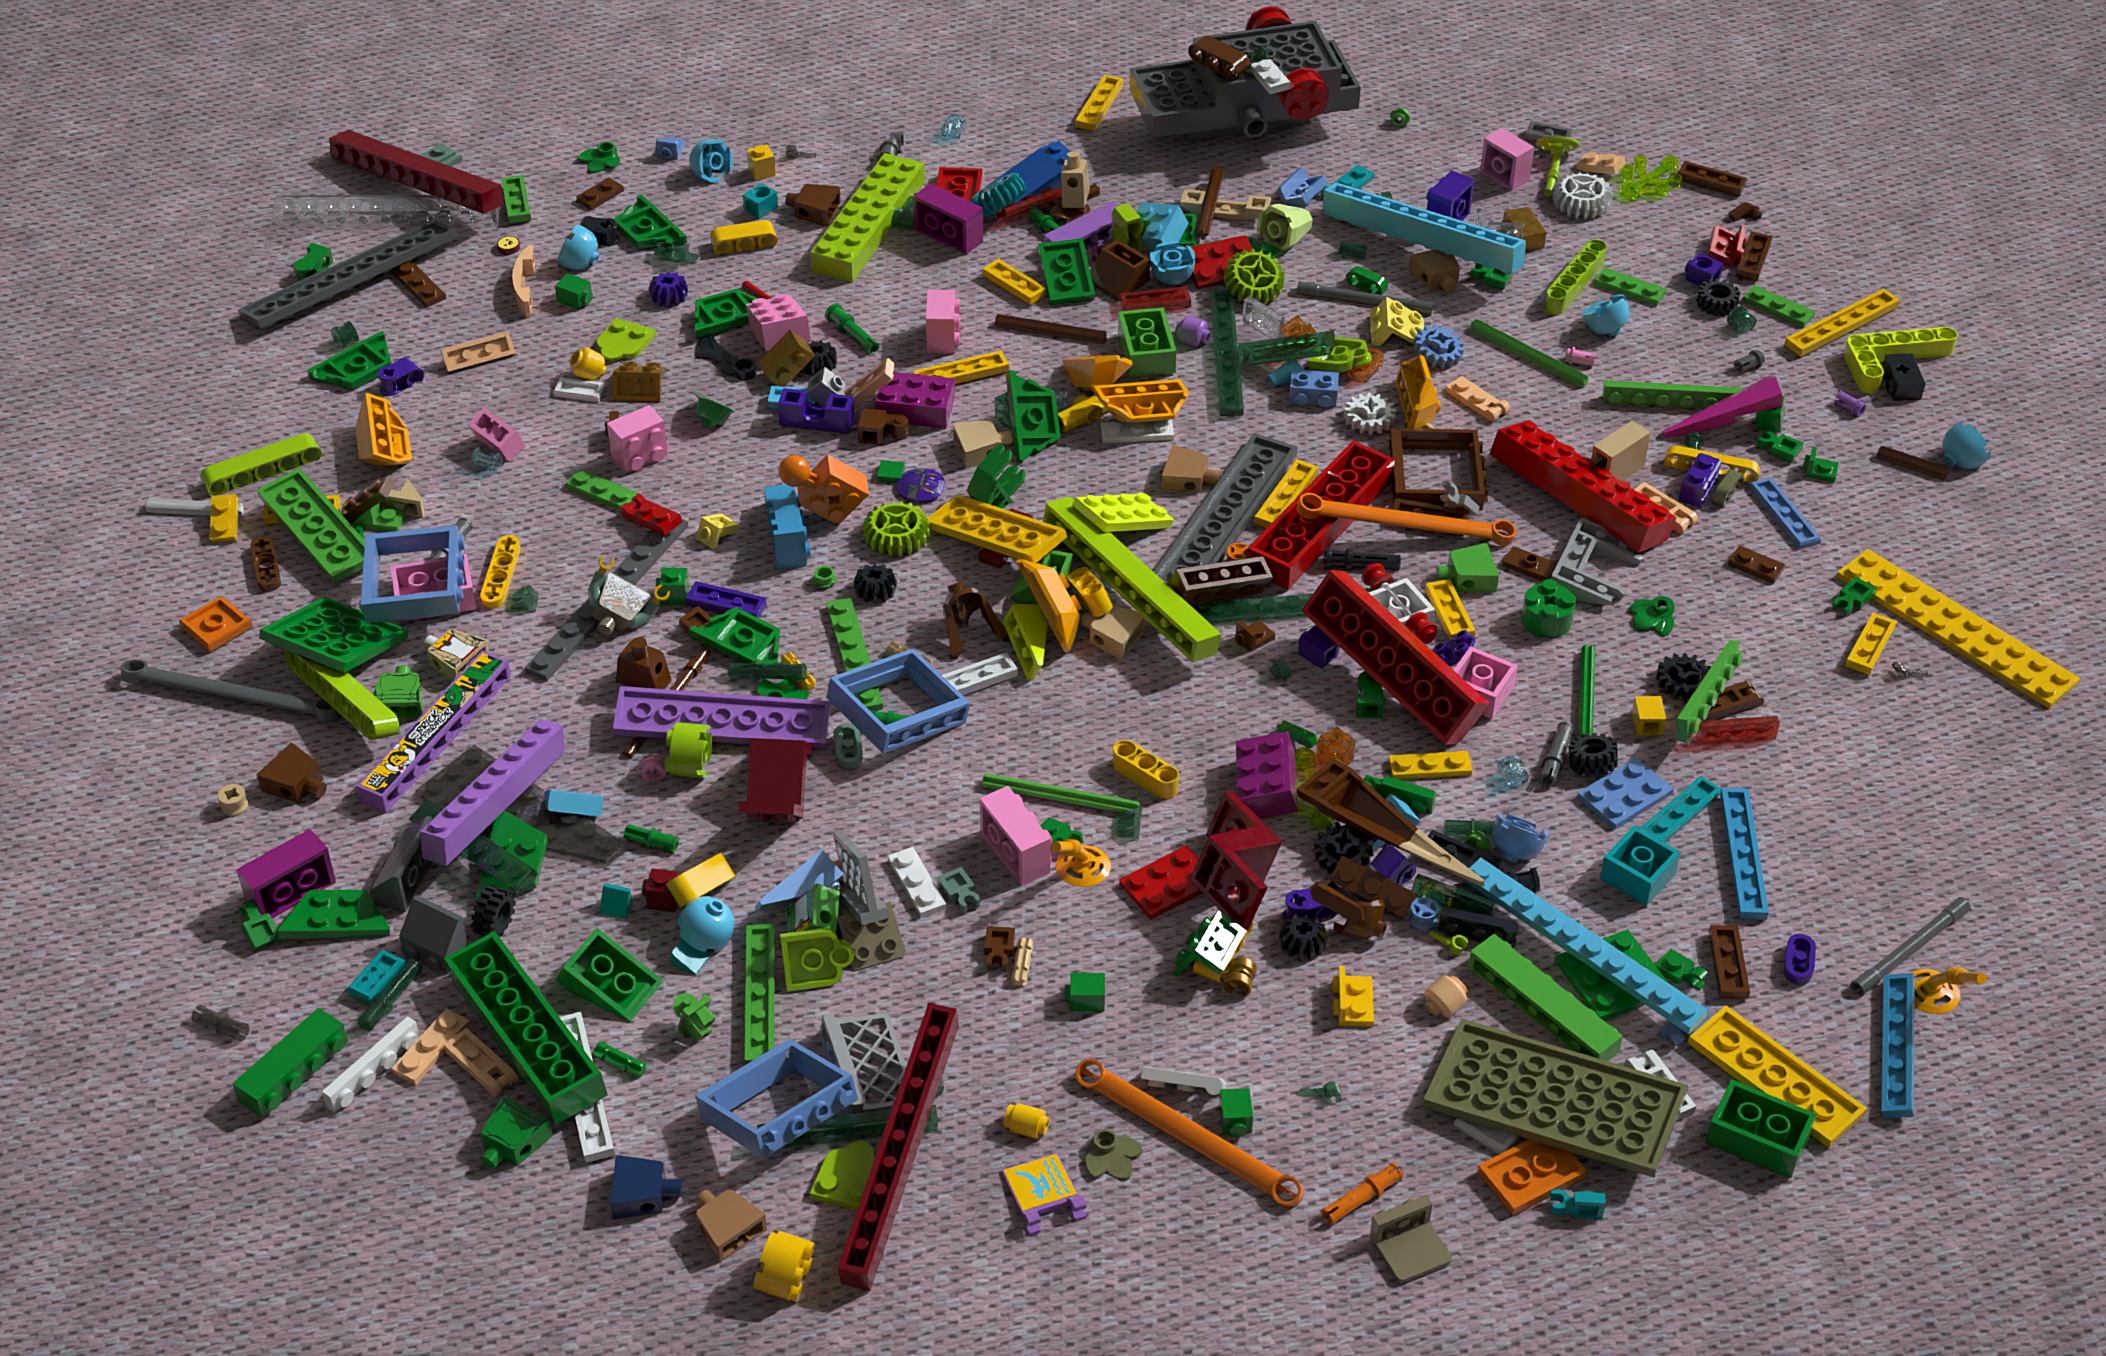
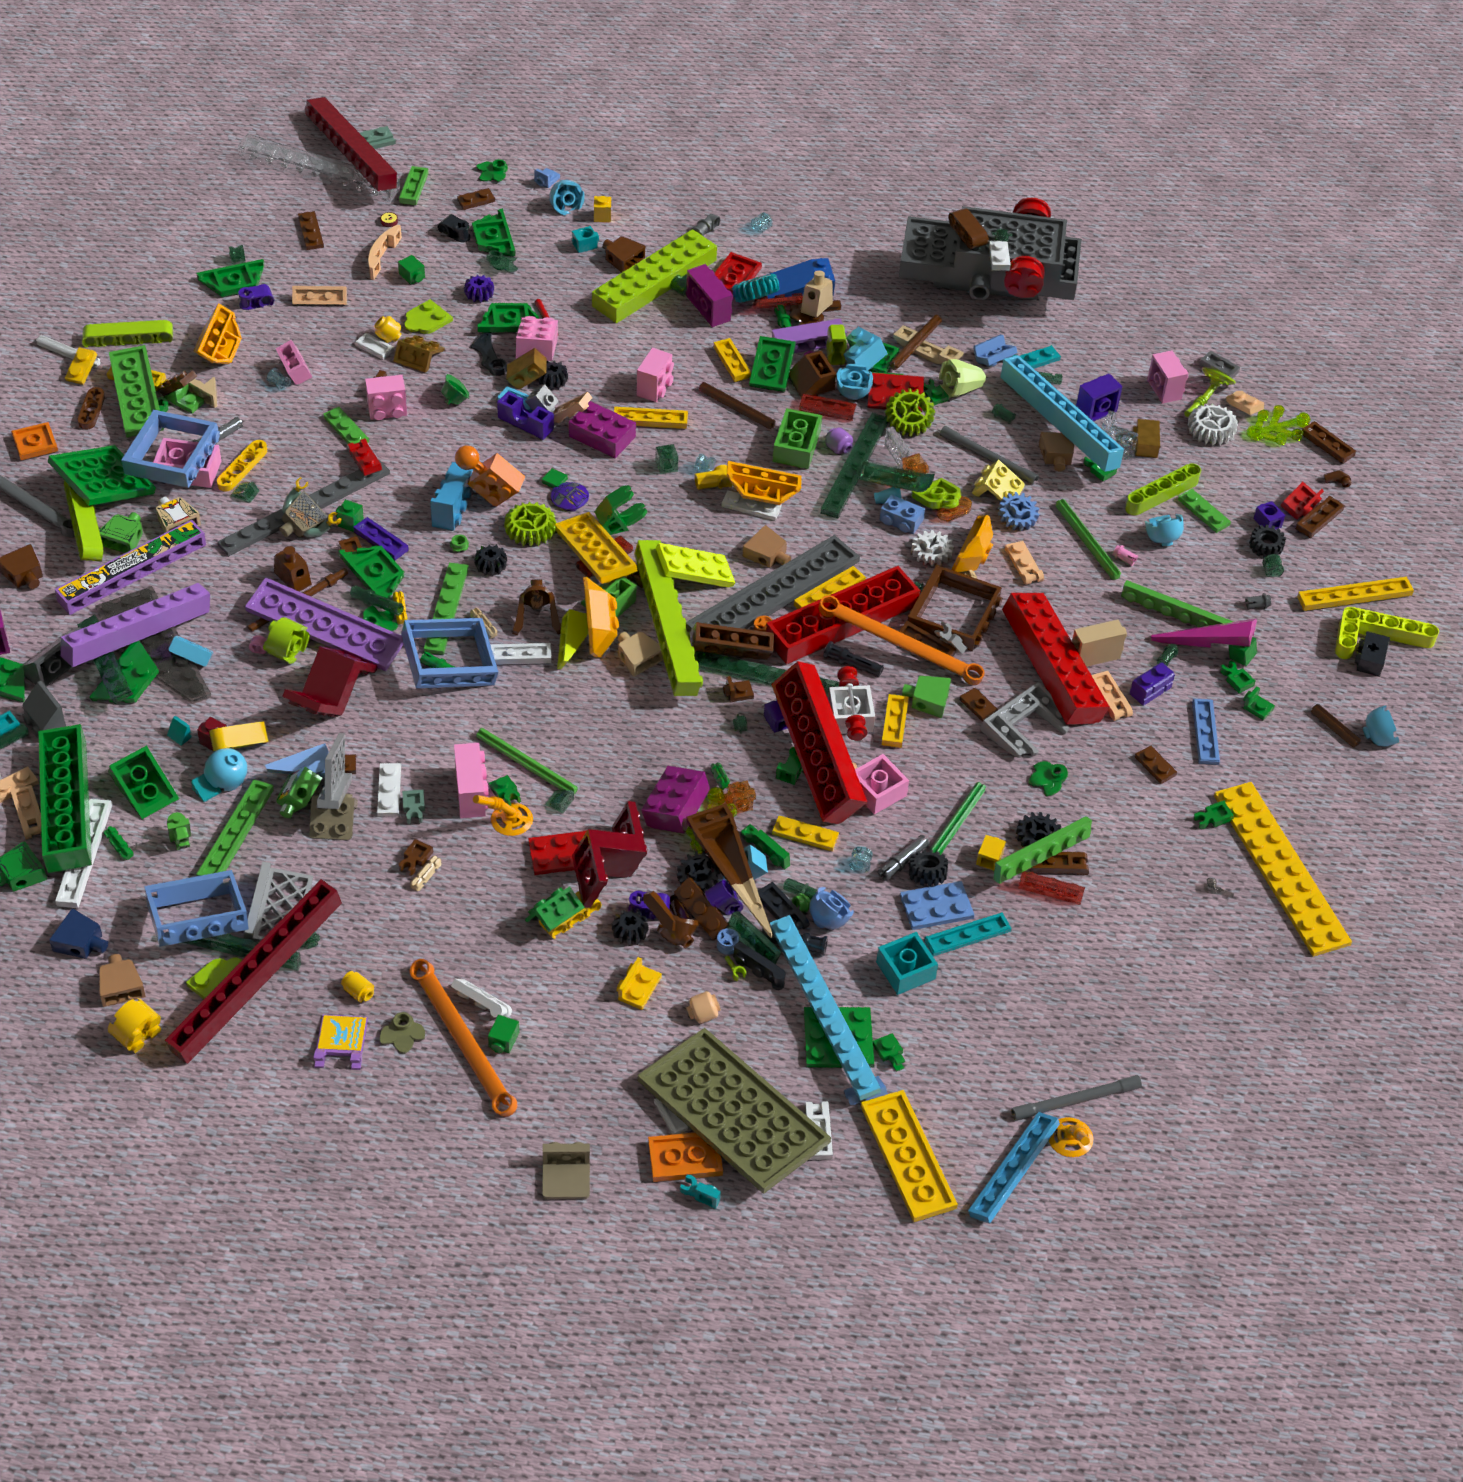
camera: 20 degrees right, 5 degrees up
(313, 261) = (246, 193): green leg -> none
(346, 274) = (264, 208): dark grey plate -> none
(493, 911) = (92, 710): black tyre -> none
(579, 250) = (432, 239): medium azure cylinder -> none
(652, 838) = (229, 694): green axle -> none
(714, 527) = (405, 480): light yellow bracket -> none
(743, 237) = (556, 263): yellow beam -> none
(792, 153) = (632, 208): clear smoke hand -> none
(814, 958) = (281, 819): lime plate -> none
(846, 323) = (590, 354): green pin -> none
(849, 747) = (398, 675): sand green plate -> none
(876, 424) = (564, 439): reddish brown brick -> none
(977, 439) = (630, 473): tan torso -> none
(1032, 415) = (675, 469): green wing -> none
(1086, 992) = (454, 910): green brick -> none
(1090, 591) = (633, 617): yellow beam -> none
(1095, 370) = (745, 449): light orange wedge -> none
(1099, 102) = (882, 236): yellow plate -> none
(1145, 769) = (595, 764): yellow beam -> none
(1240, 975) = (569, 937): pearl gold wheel -> none
(1329, 1090) = (580, 1044): clear green hand -> none
(1366, 280) = (997, 442): green beam -> none
(1371, 1187) = (557, 1125): orange pin -> none
(1400, 112) = (1109, 316): bright green plate -> none
(1455, 649) = (872, 751): dark purple dish -> none
(1544, 999) = (773, 1037): bright green brick -> none
(1548, 609) = (966, 745): green brick -> none
(1727, 487) = (1171, 696): olive beam -> none
(1729, 962) = (929, 1059): reddish brown plate -> none
(1733, 462) = (1190, 684): yellow beam -> none
(1744, 854) = (994, 982): dark azure plate -> none
(1760, 1128) = (866, 1188): green brick -> none
(1779, 306) = (1313, 564): bright green plate -> none
(1799, 960) = (983, 1077): dark purple plate -> none
(1847, 402) = (1319, 665): medium lavender pin -> none
(1871, 644) = (1202, 857): yellow plate -> none

